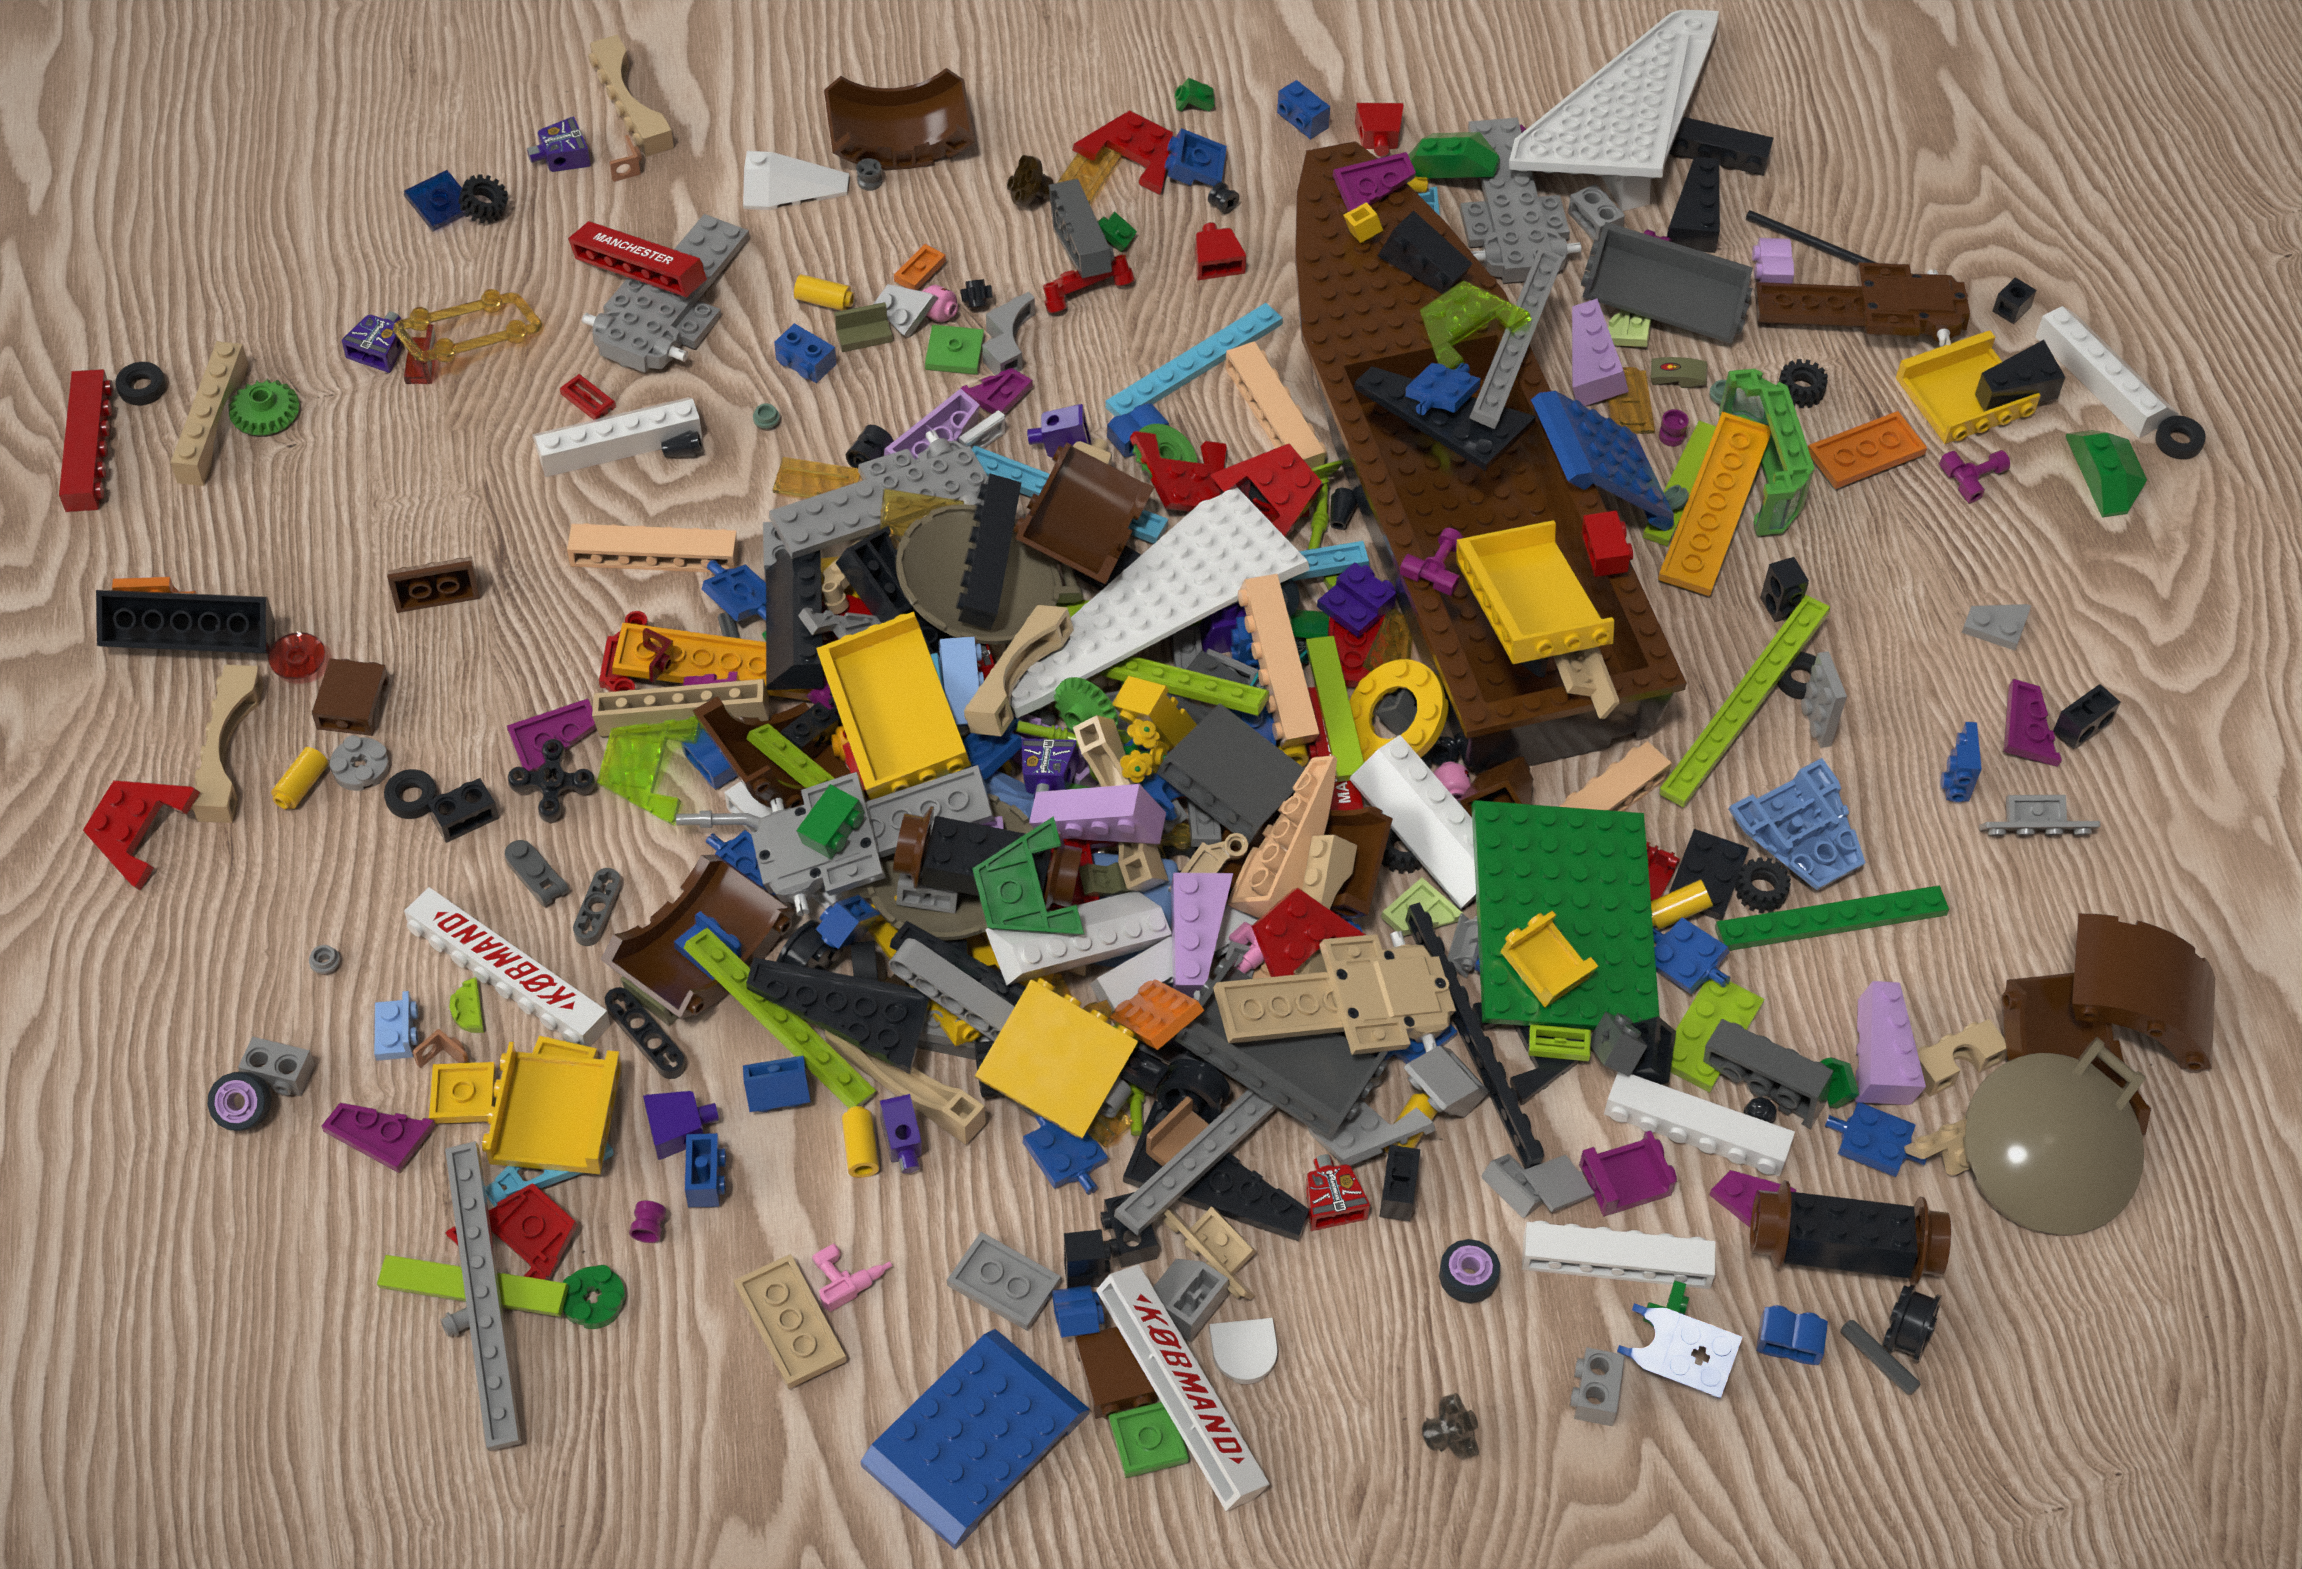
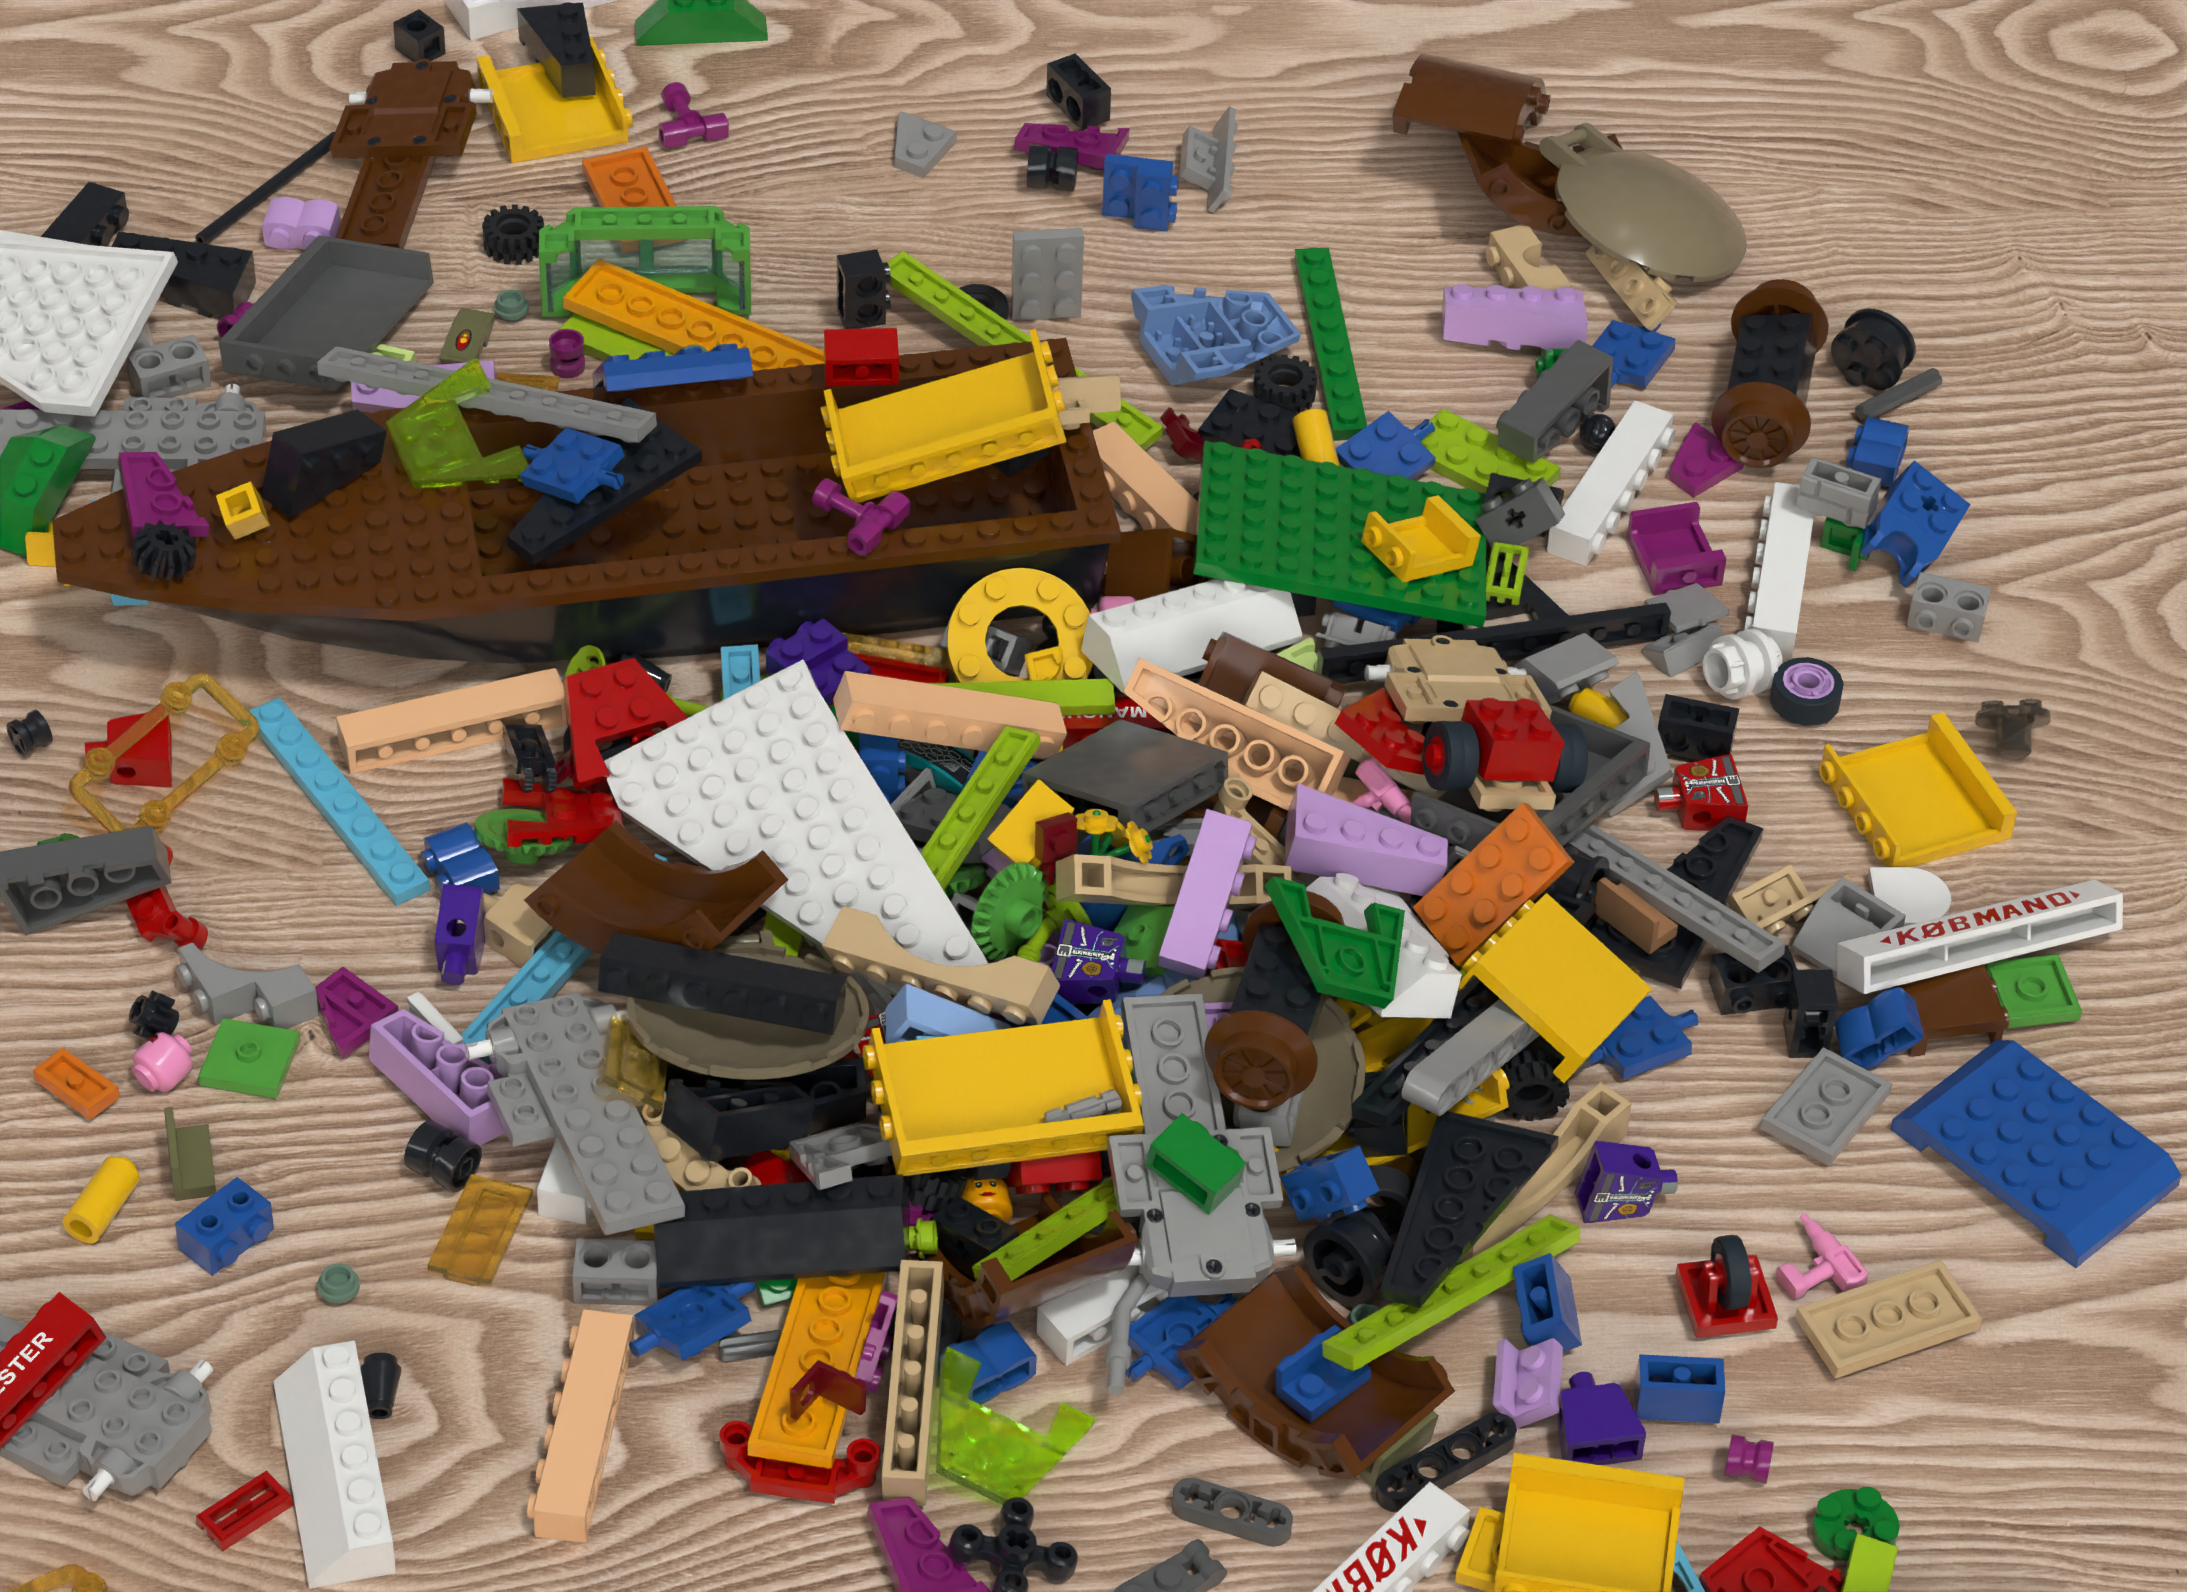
camera: 85 degrees left, 10 degrees down
(712, 1073) = (1528, 1381): none -> lavender bracket
(799, 699) = (923, 1237): none -> lime plate
(804, 1208) = (1726, 1291): none -> red plate
(860, 1142) = (1628, 1232): yellow brick -> none
(880, 754) = (1091, 1106): none -> light grey axle
(906, 307) = (163, 1086): light grey wing -> none
(1125, 712) = (1054, 841): none -> dark red plate
(1225, 298) = (174, 701): none -> clear yellow bar
(1238, 450) = (530, 755): none -> black hinge
(1278, 1003) = (1504, 745): none -> brick
(1318, 190) = (163, 551): none -> black gear
(1362, 1356) = (1920, 796): none -> yellow panel
(1373, 731) = (1044, 663): none -> yellow tile
(1486, 1217) = (1742, 663): none -> white piece
(1677, 818) = (1185, 440): none -> dark red plate
(1688, 1276) = (1838, 493): none -> light grey brick
(1985, 706) = (1052, 167): none -> black wheel

